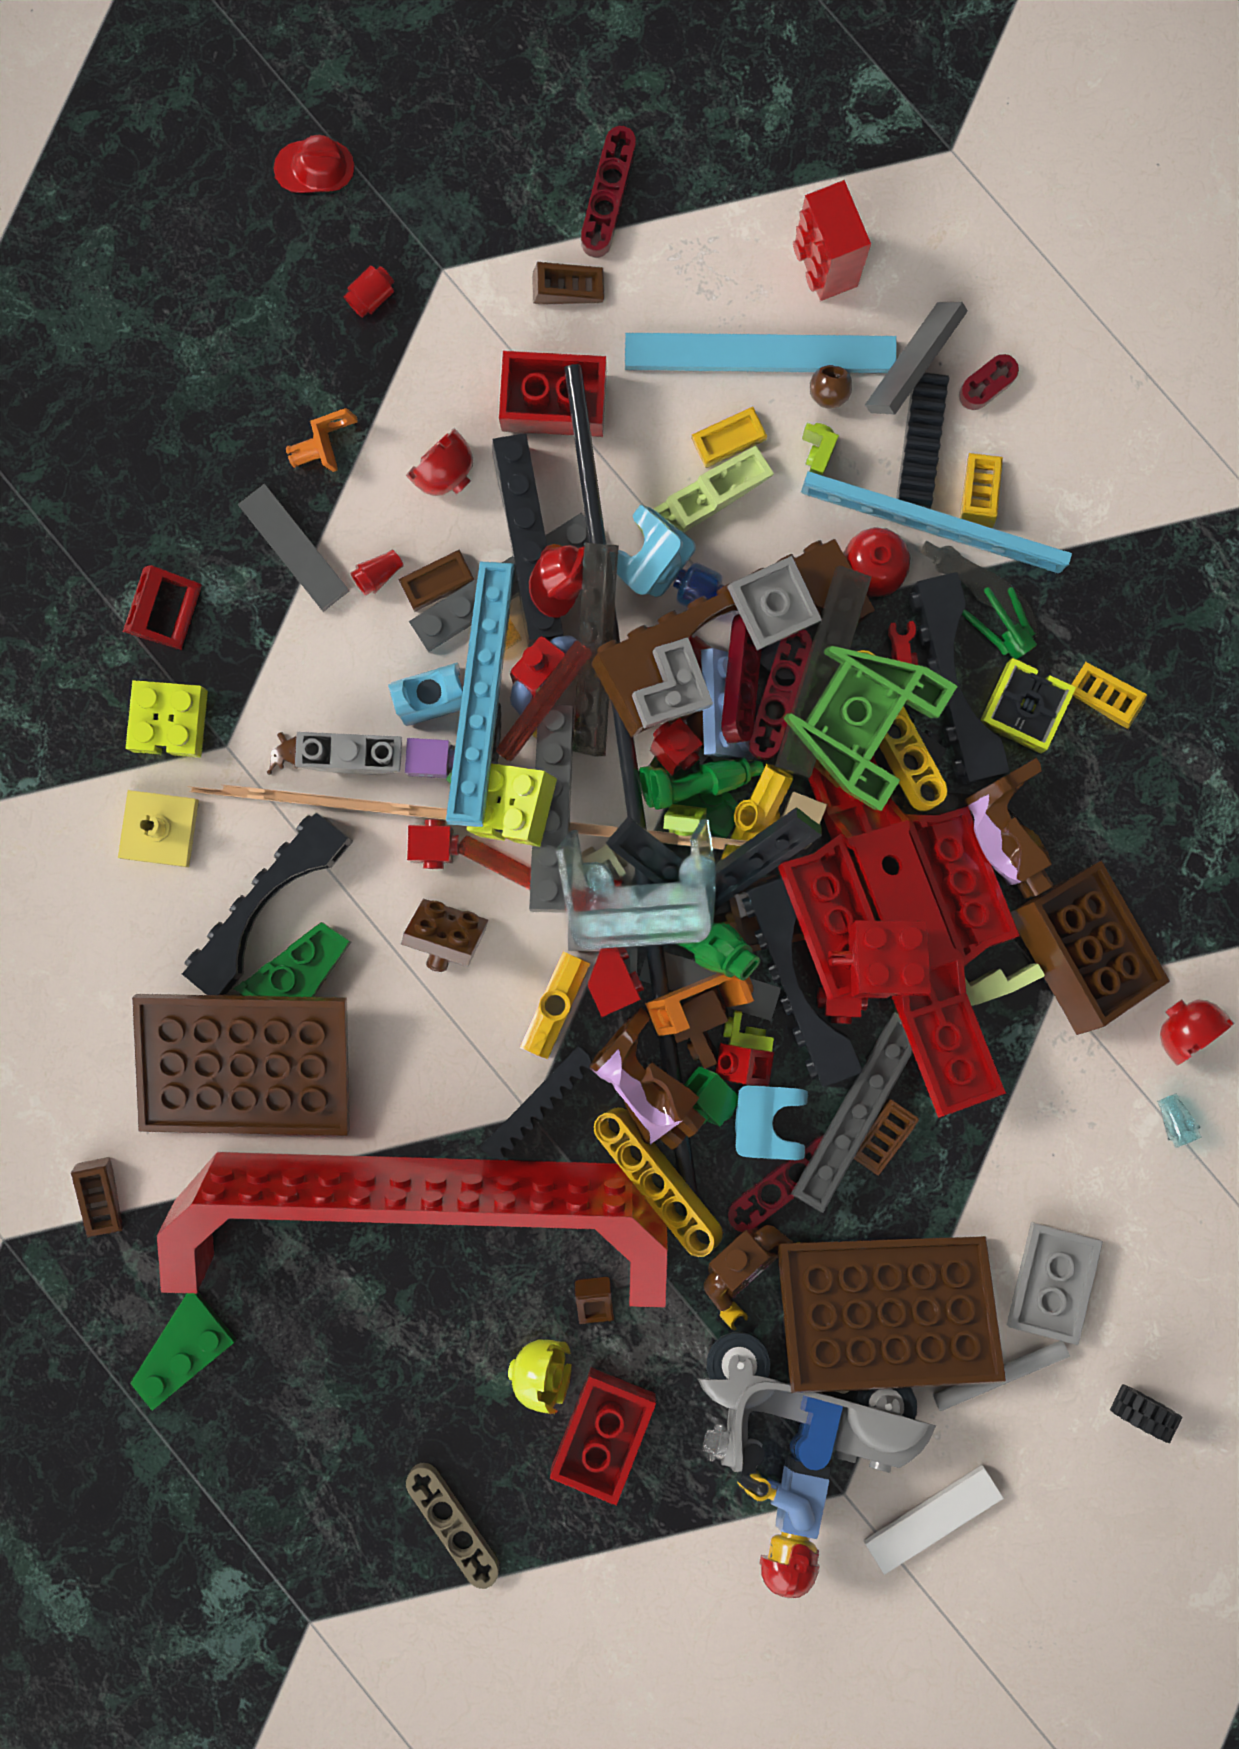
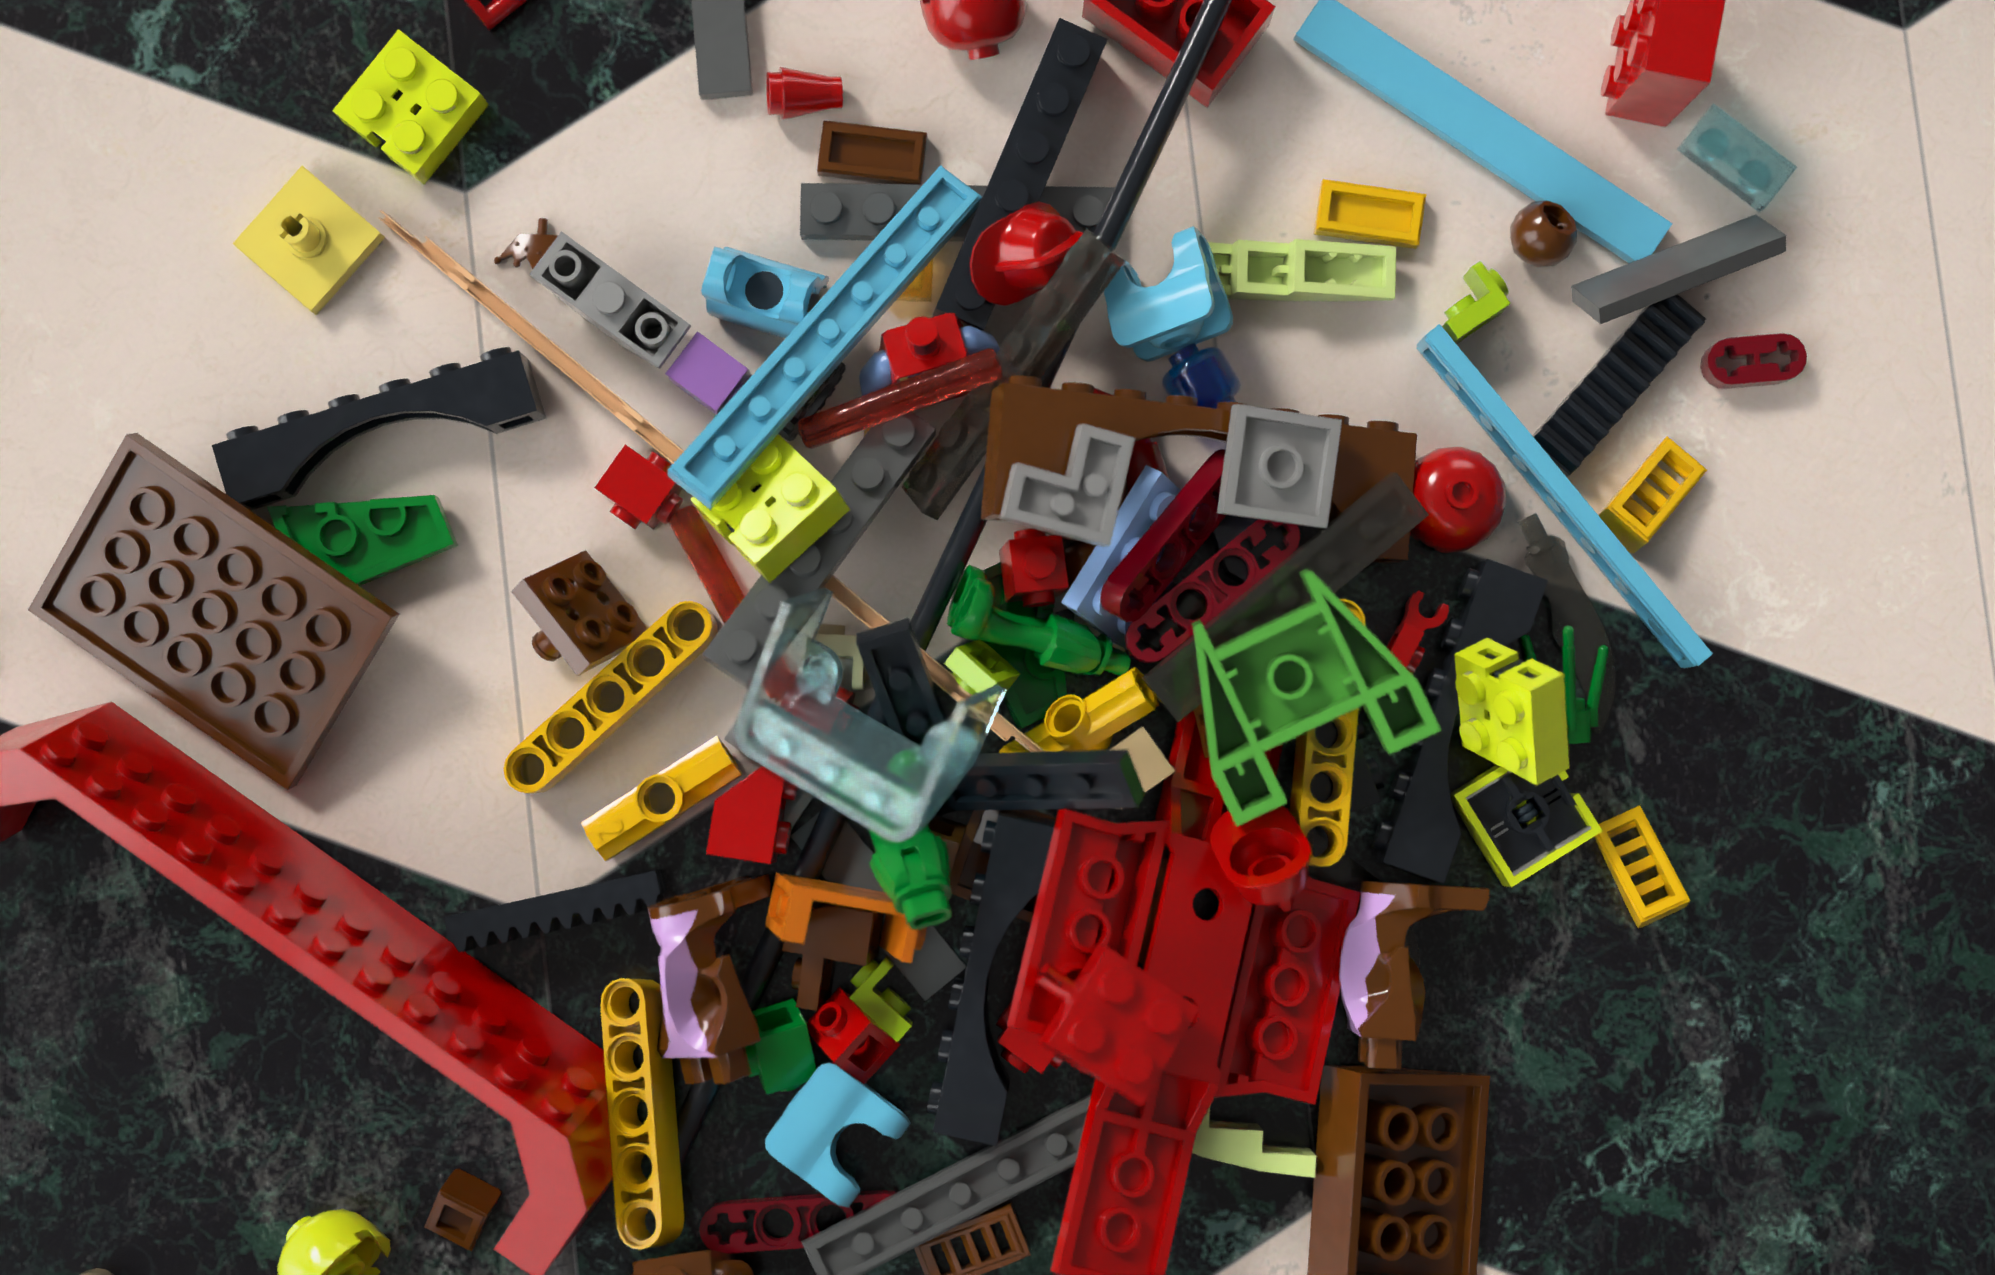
camera: 25 degrees right, 0 degrees up
(481, 983) = (586, 705): none -> yellow beam
(905, 818) = (1263, 856): none -> red piece
(907, 278) = (1736, 158): none -> clear light blue plate
(986, 653) = (1512, 711): none -> neon yellow piece

